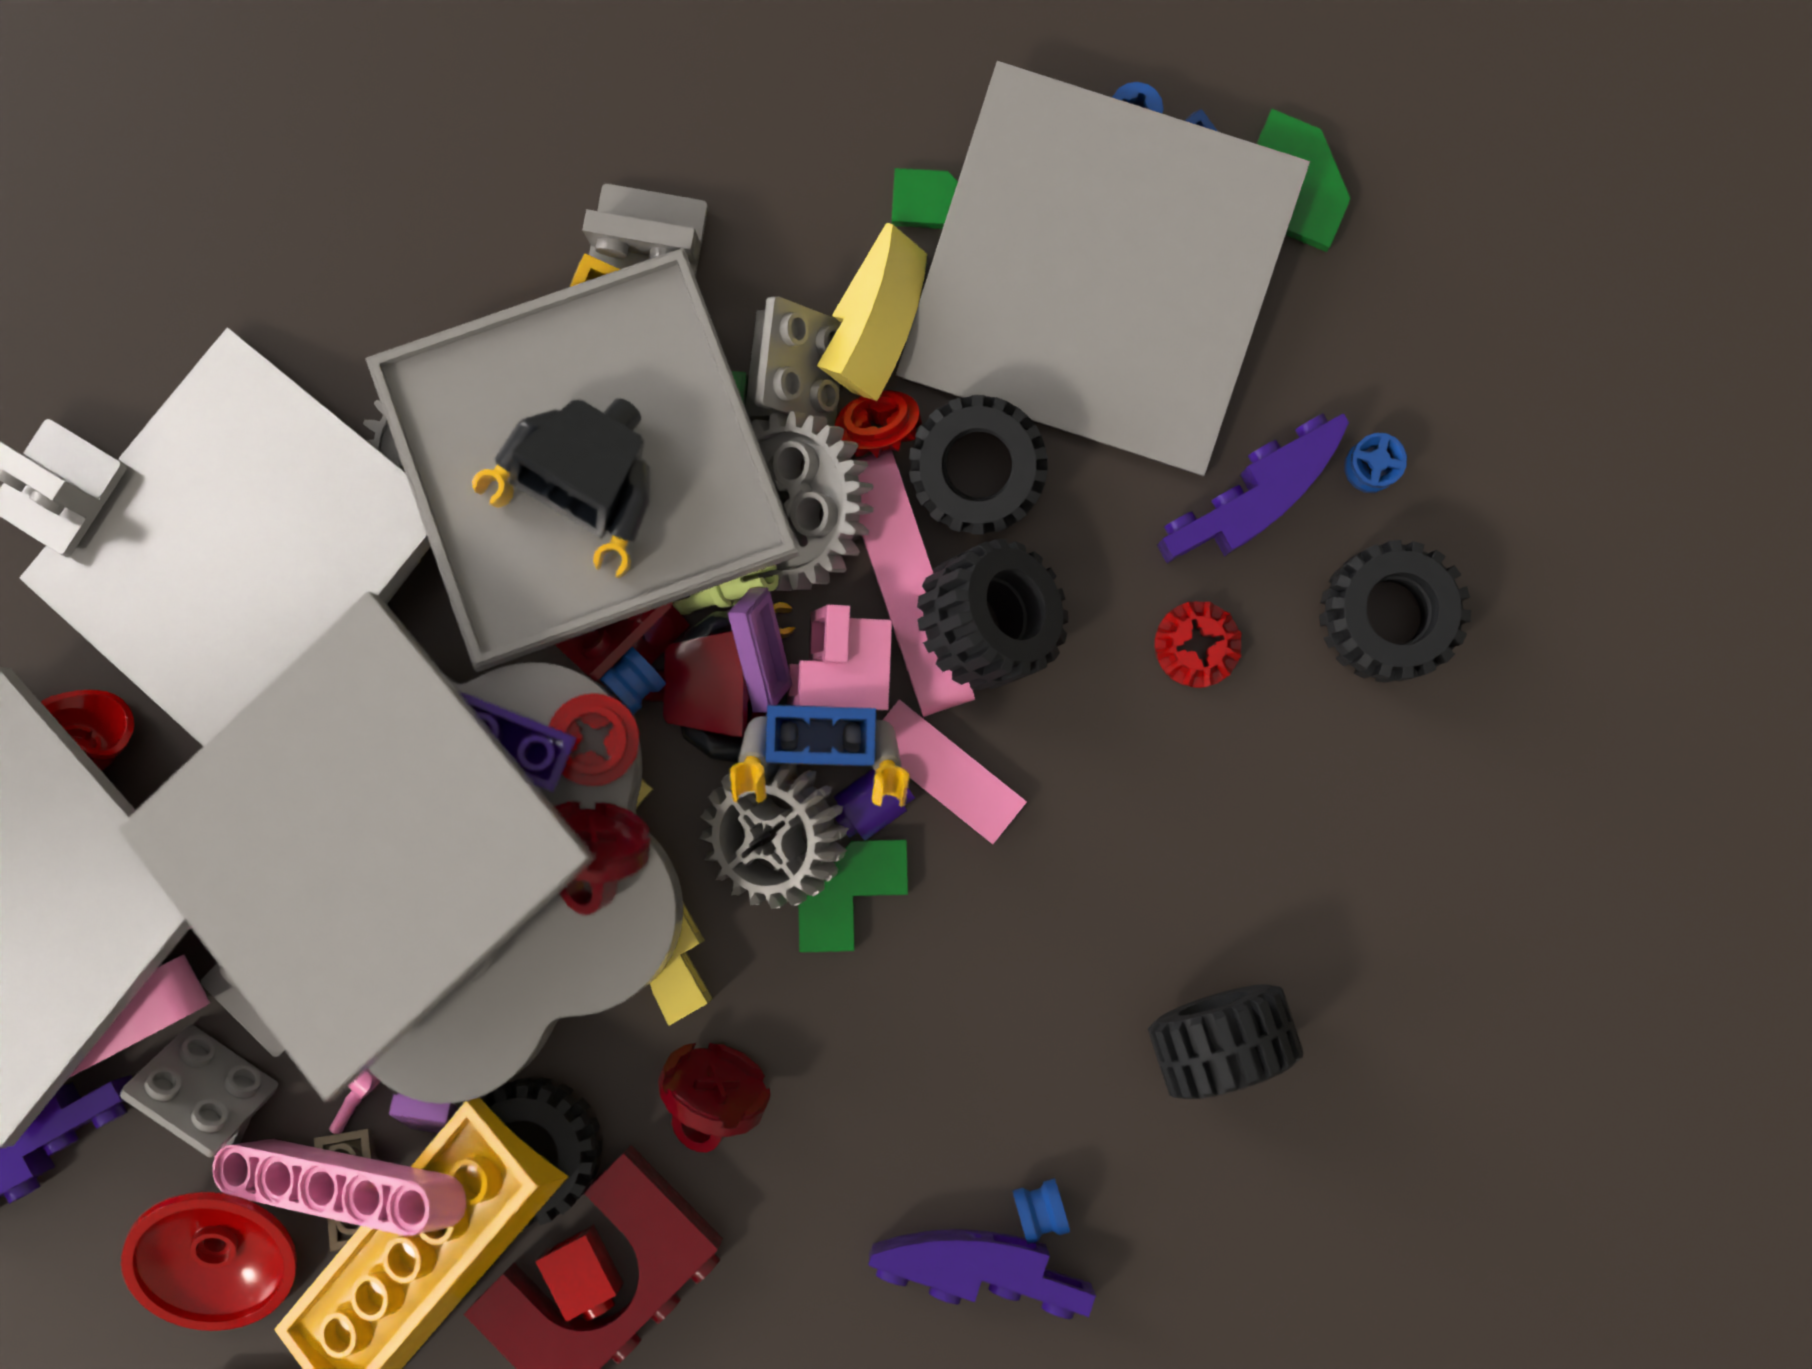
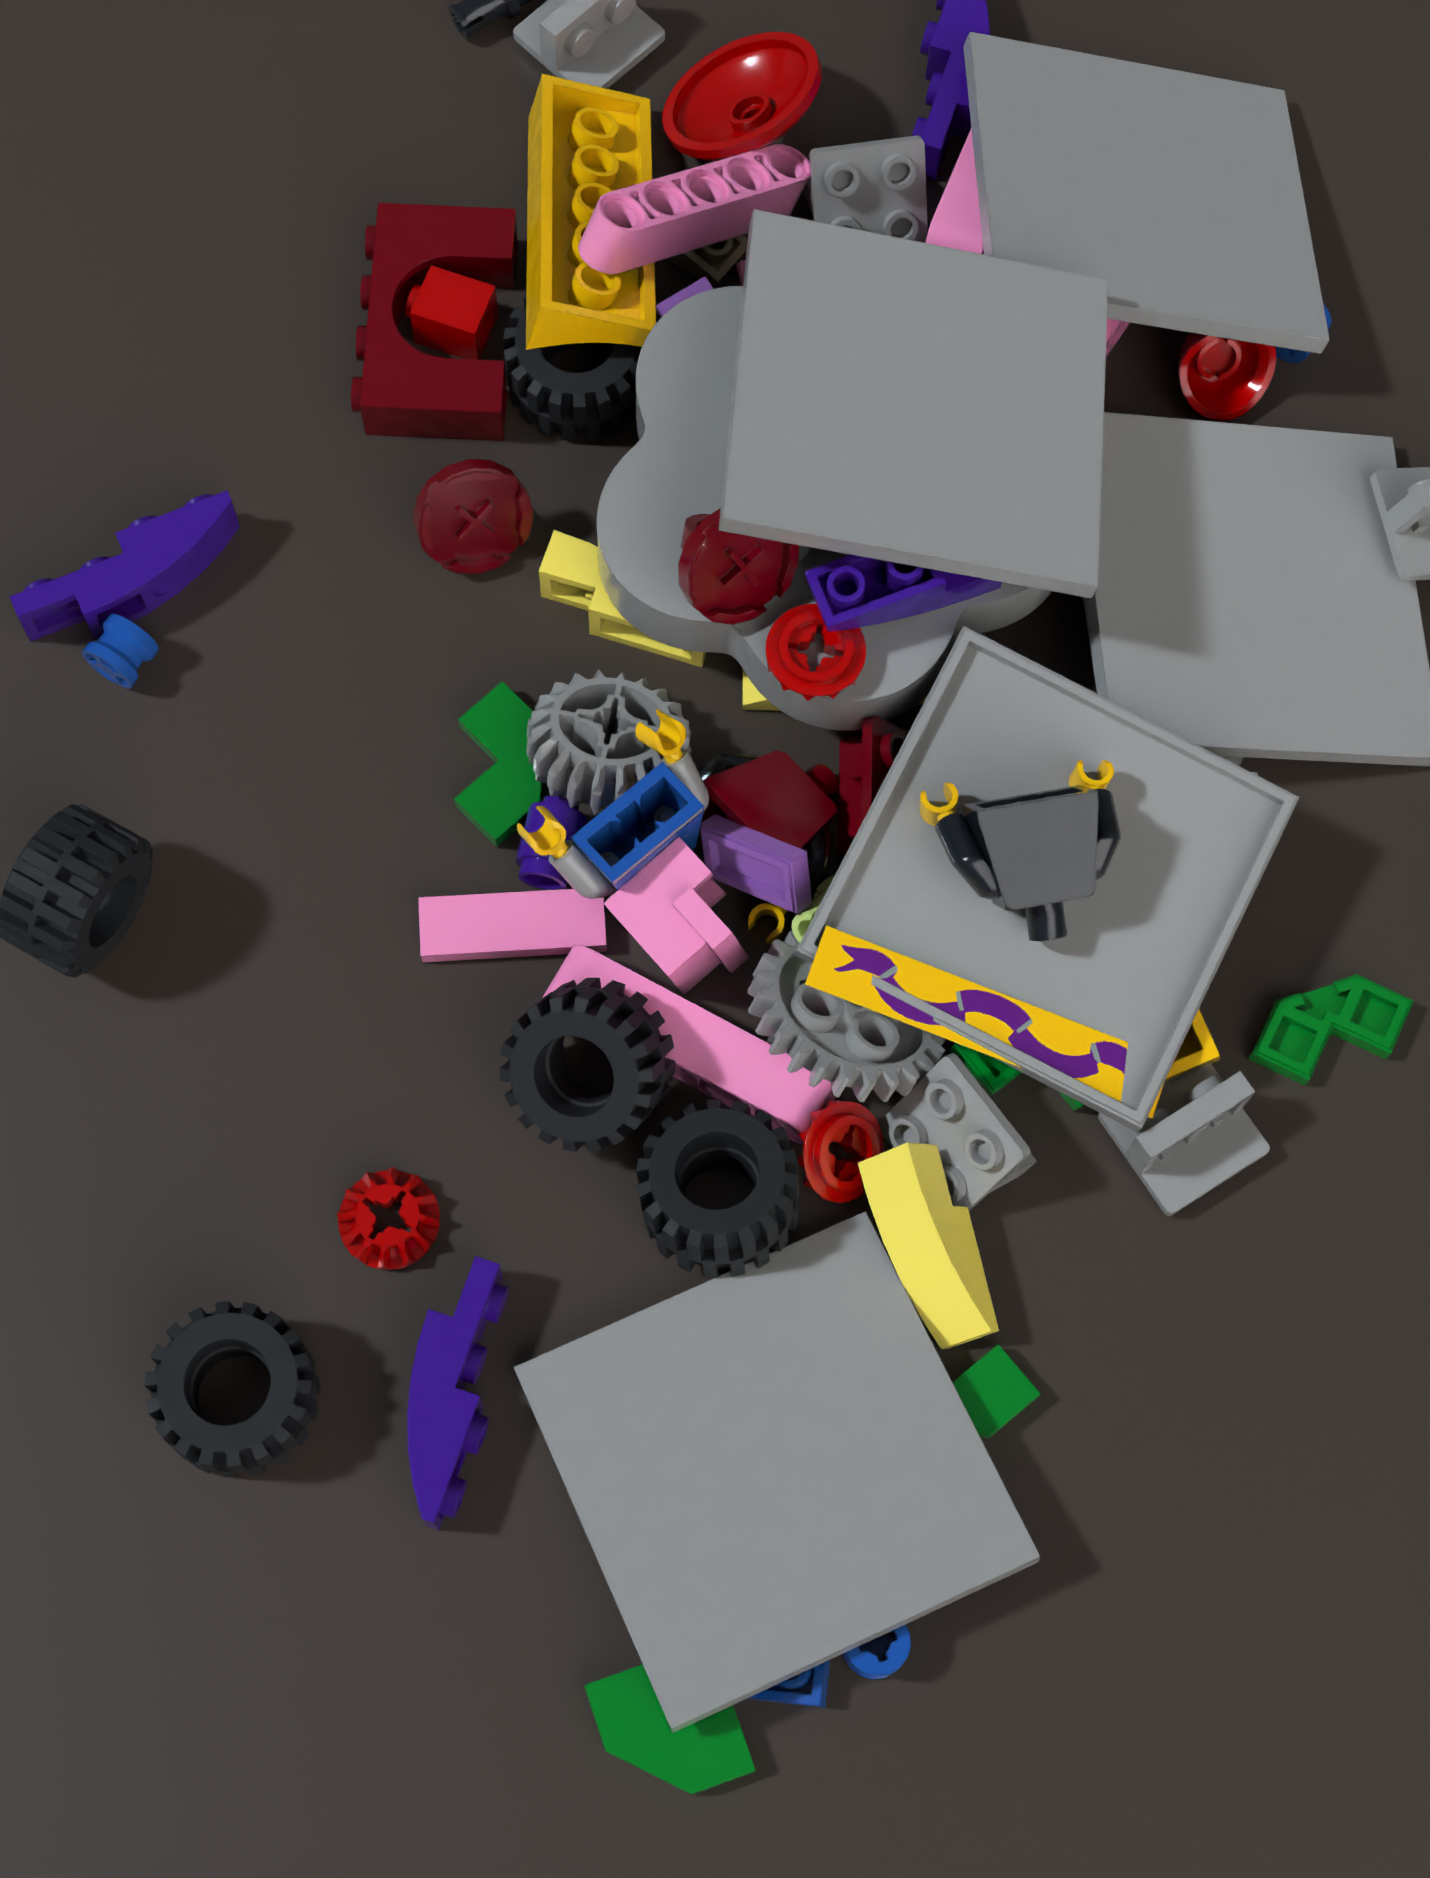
camera: 130 degrees right, 15 degrees down
(499, 245) = (1348, 1009): none -> green tile
(632, 680) = (836, 752): blue wheel -> none
(682, 342) = (846, 968): none -> yellow sticker
(1385, 458) = (360, 1507): blue wheel -> none

